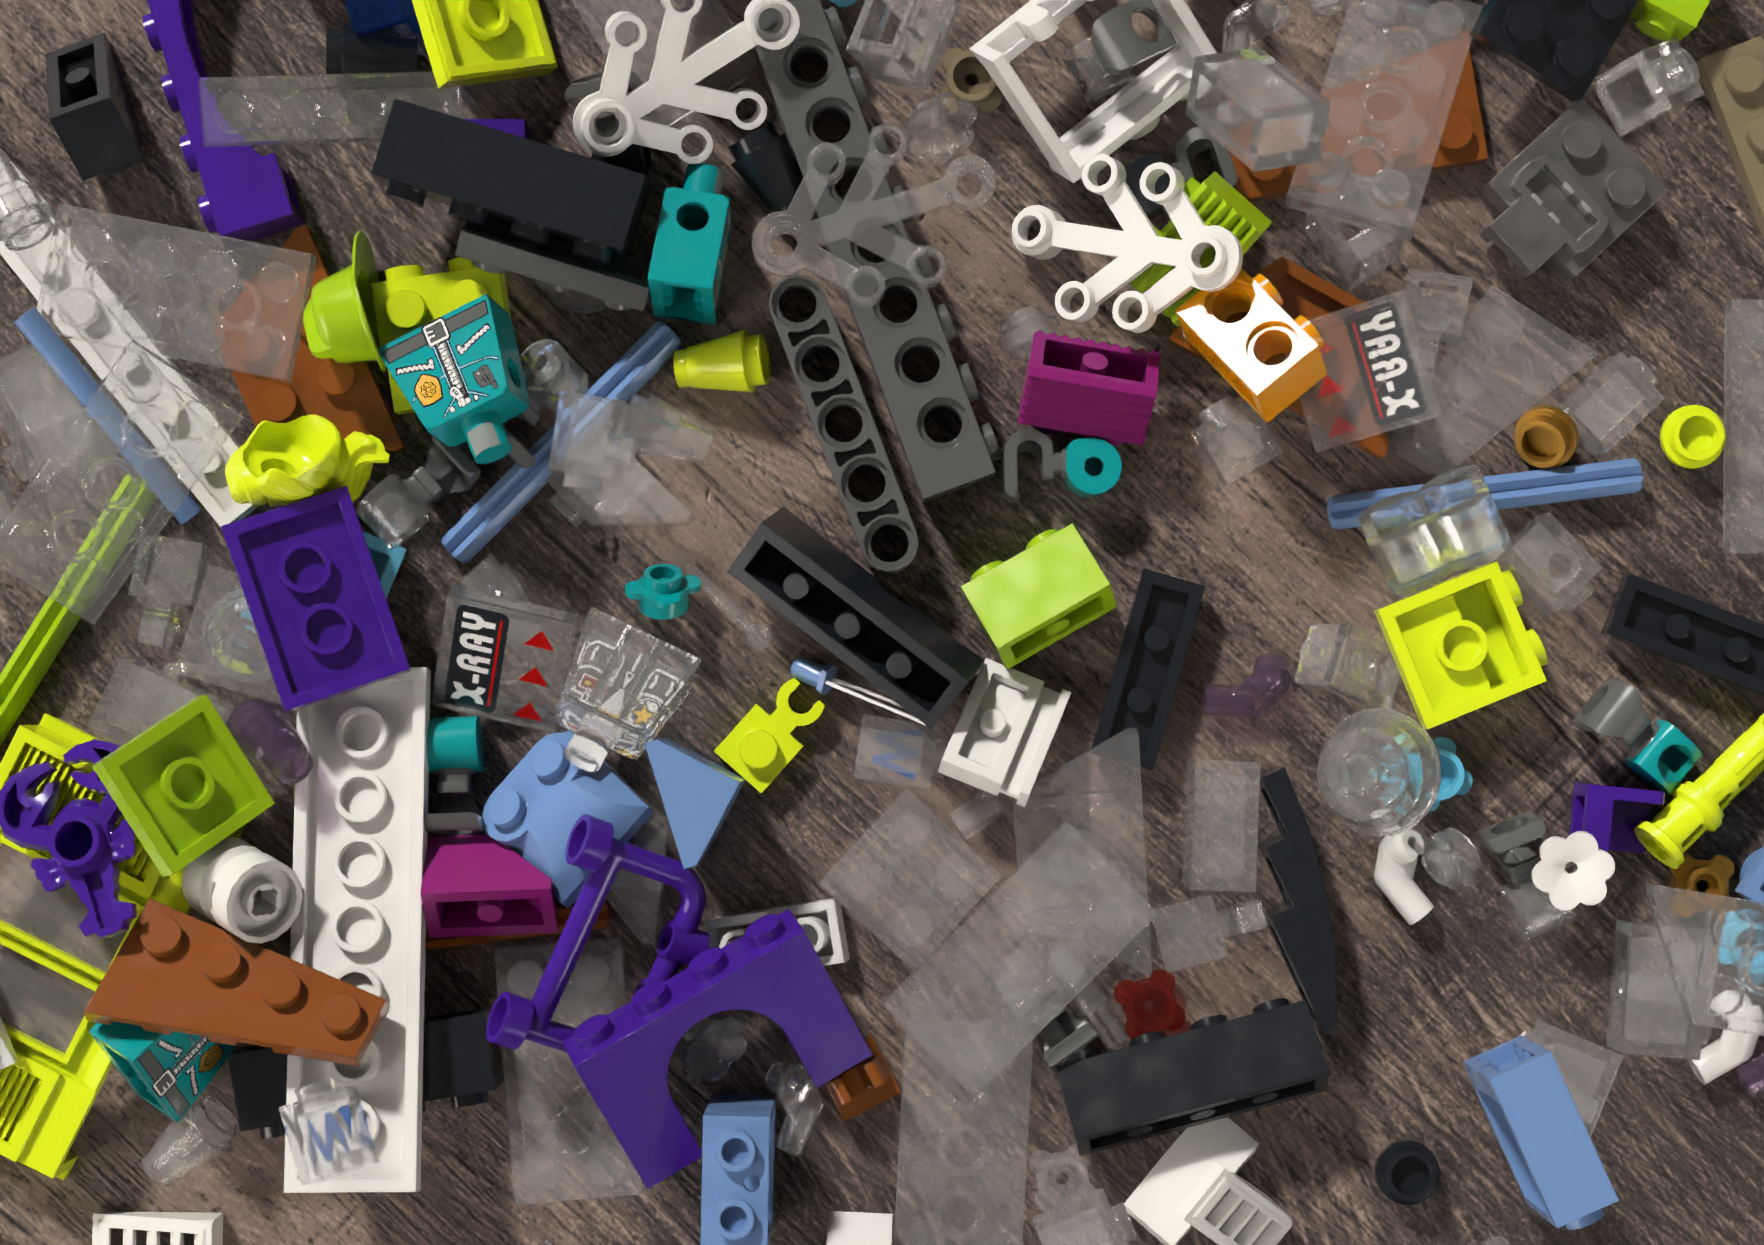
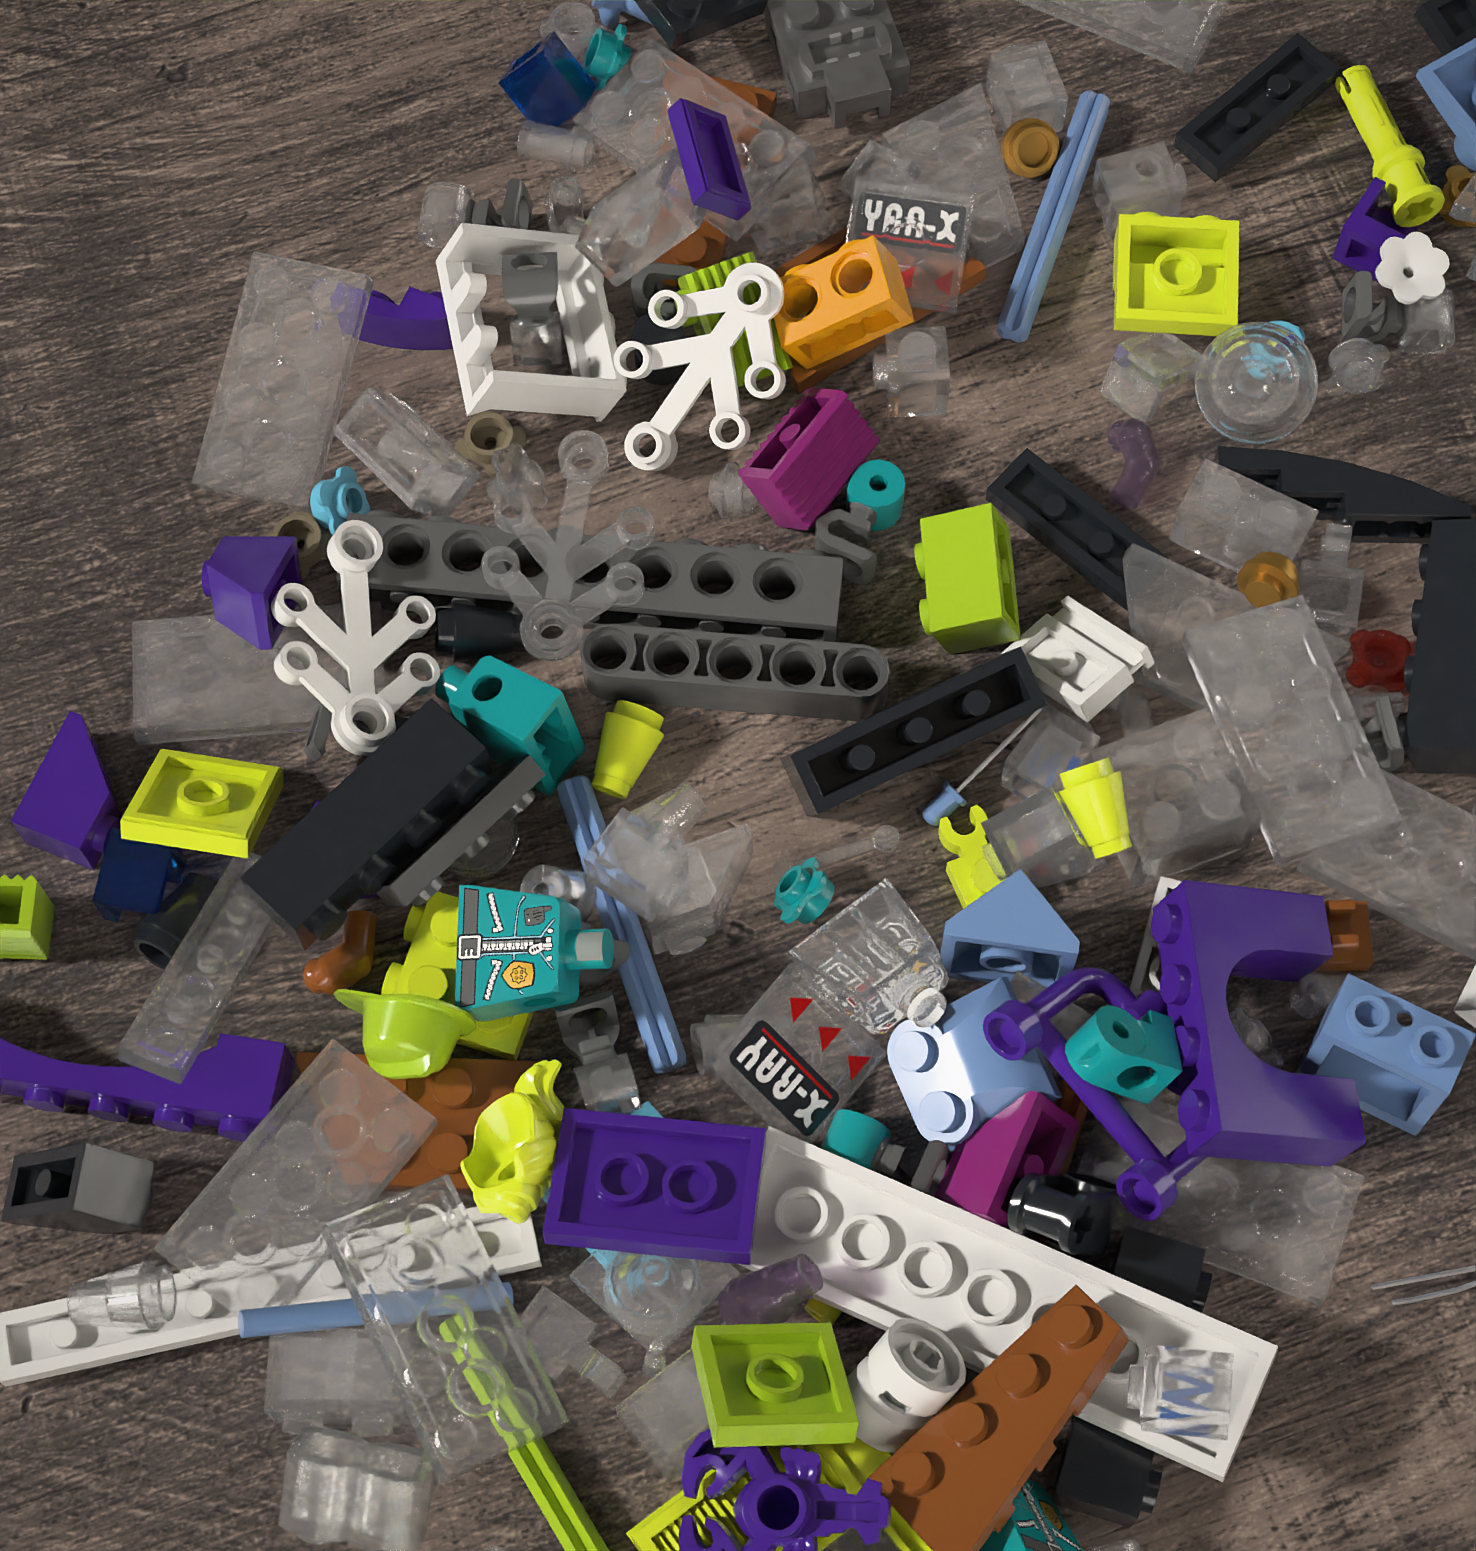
camera: 65 degrees left, 20 degrees down
(407, 222) = (347, 962): none -> dark orange arm
(465, 959) = (1066, 1209): none -> black piece
(619, 950) = (1117, 1049): none -> teal leg
(803, 785) = (1040, 841): none -> clear slope
(849, 819) = (1098, 806): none -> neon yellow cone
(1165, 875) = (1268, 579): none -> pearl gold plate
(1338, 141) = (709, 159): none -> dark purple tile
(1395, 874) = (1350, 419): white arm -> none
(1435, 531) = (1069, 249): clear brick -> none
(1656, 750) = (1335, 174): leg -> none
(1692, 436) = (1084, 47): neon yellow plate -> none

